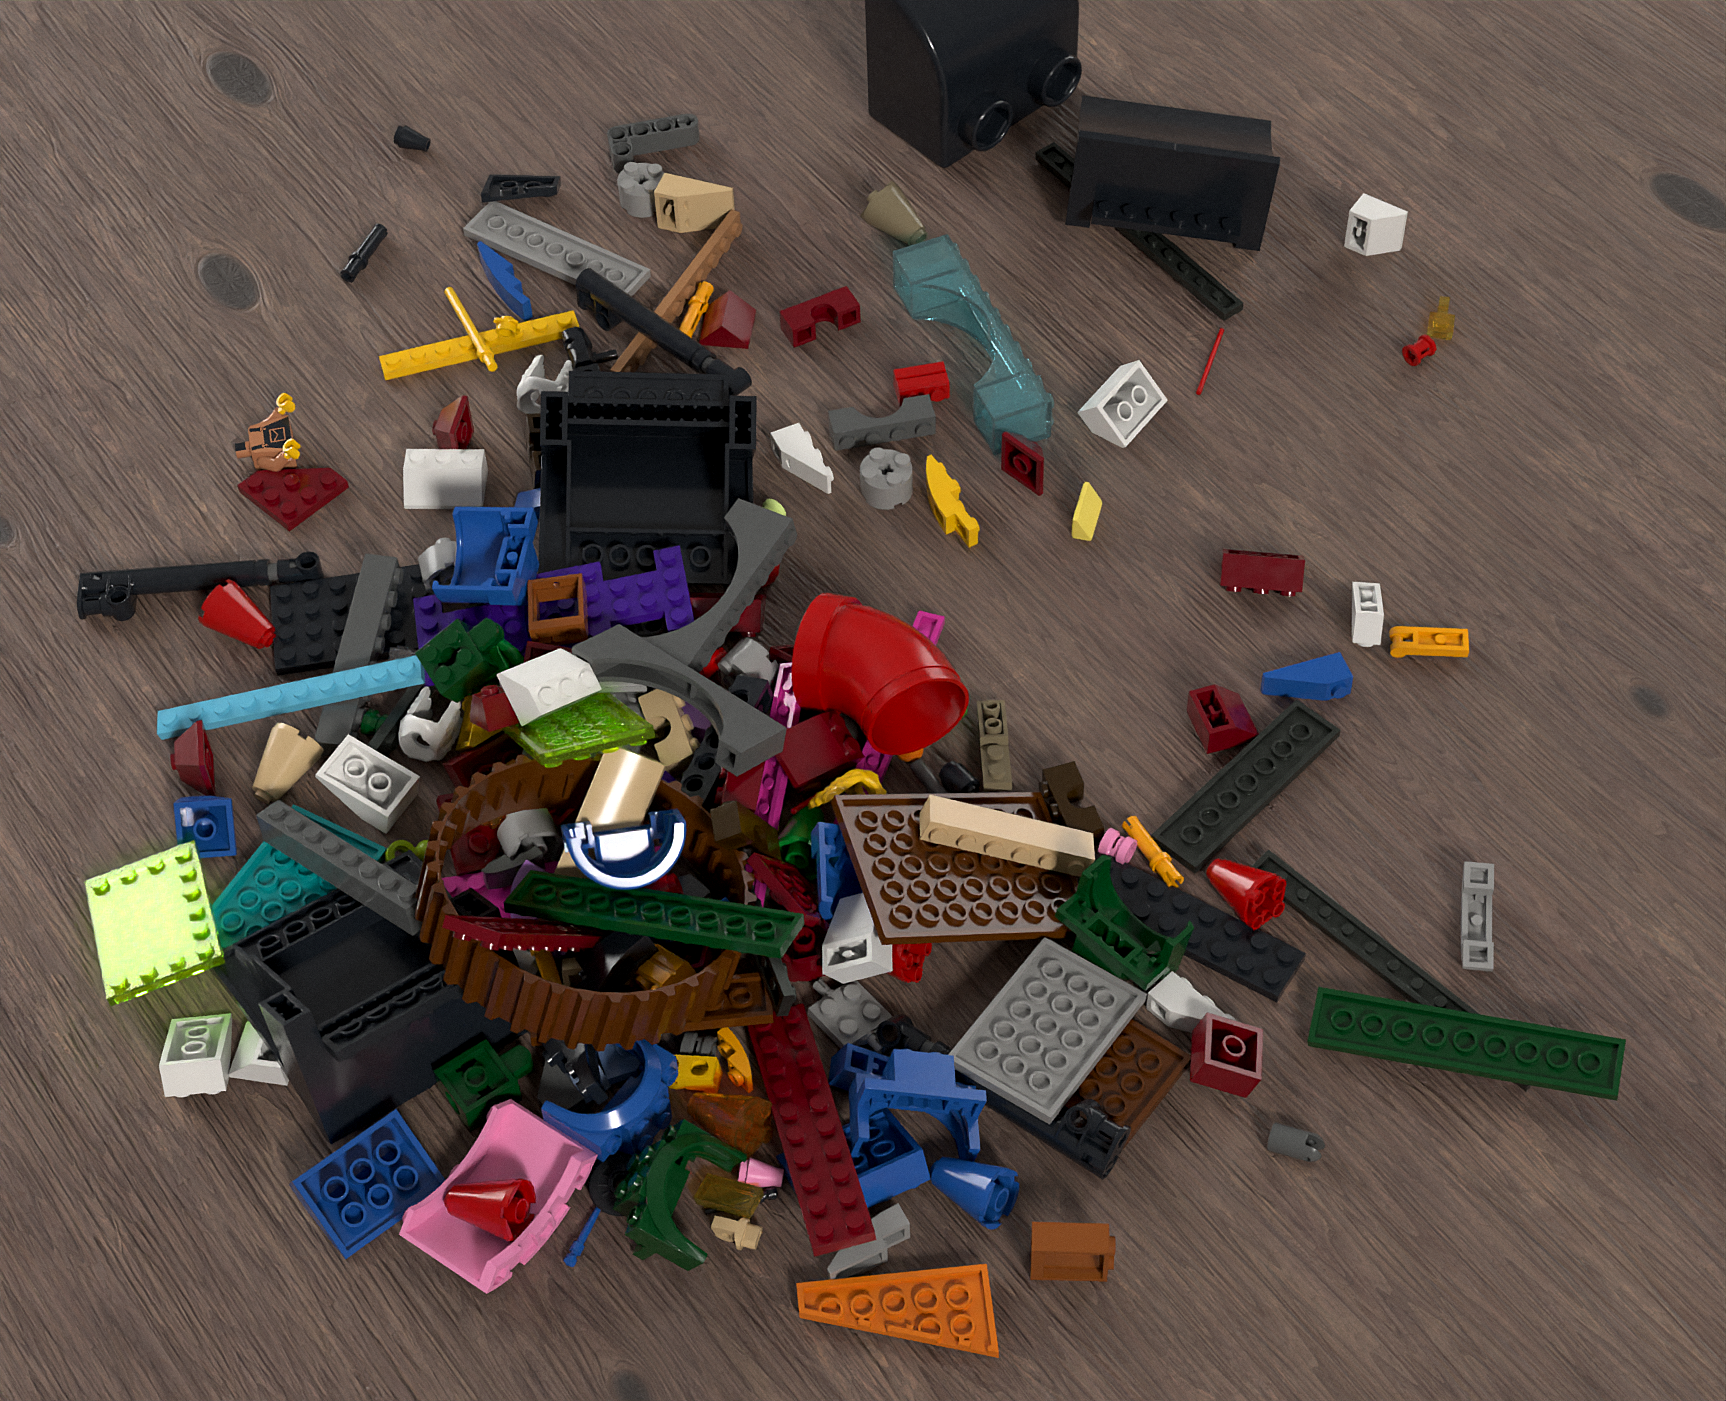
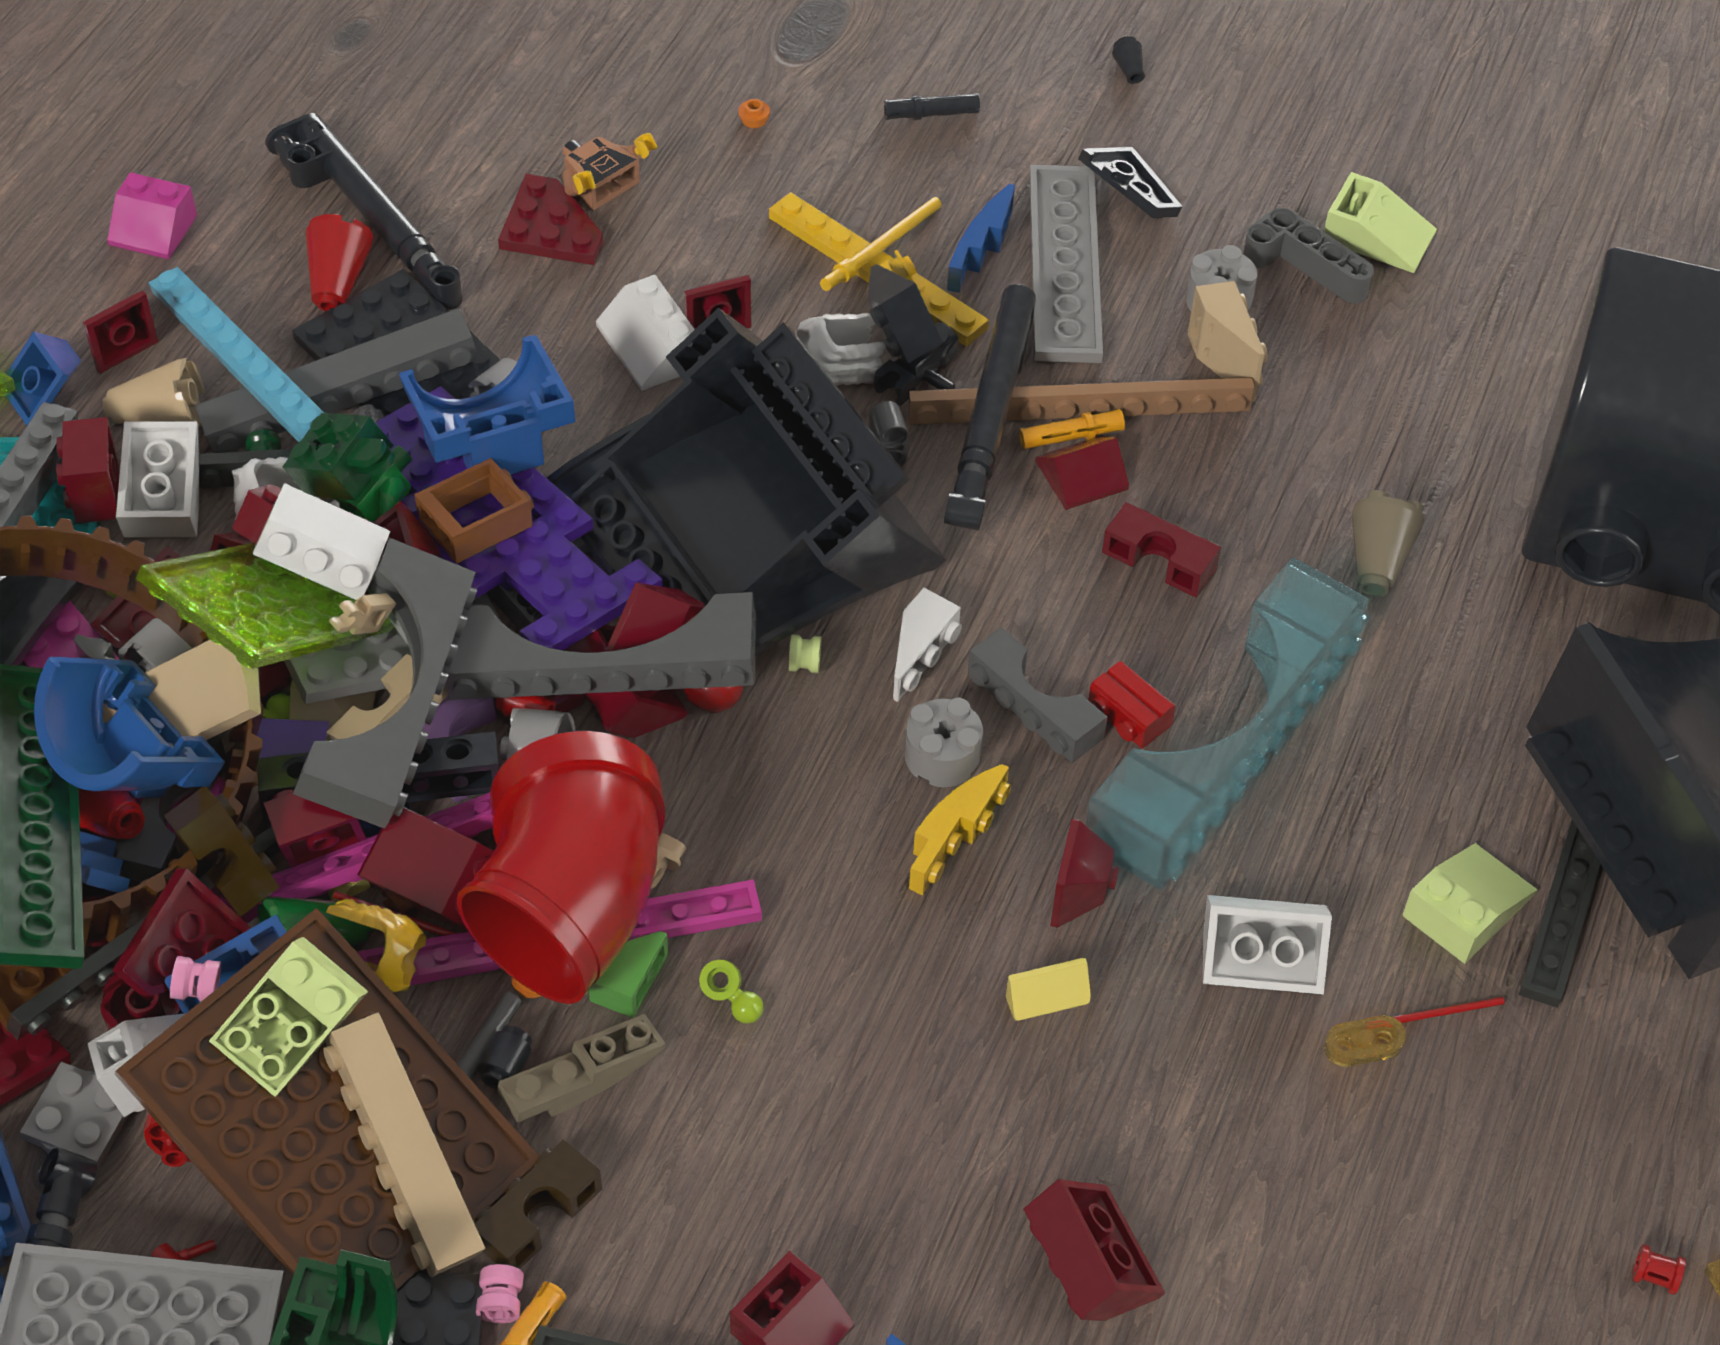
camera: 55 degrees right, 0 degrees up
(93, 708) = (151, 215): none -> dark pink slope
(286, 344) = (754, 113): none -> orange plate
(339, 809) = (88, 469): none -> dark red brick
(554, 336) = (901, 315): none -> black slope
(617, 687) = (364, 615): none -> tan plate
(652, 96) = (1378, 224): none -> yellowish green slope
(715, 562) = (651, 615): none -> dark red slope
(839, 879) = (186, 975): none -> bright pink wheel
(901, 837) = (288, 1015): none -> yellowish green slope
(982, 1003) = (166, 1251): none -> red hand
(999, 656) = (745, 1005): none -> lime plate
(1155, 310) = (1467, 901): none -> yellowish green slope
(1211, 395) = (1362, 1040): none -> clear yellow plate

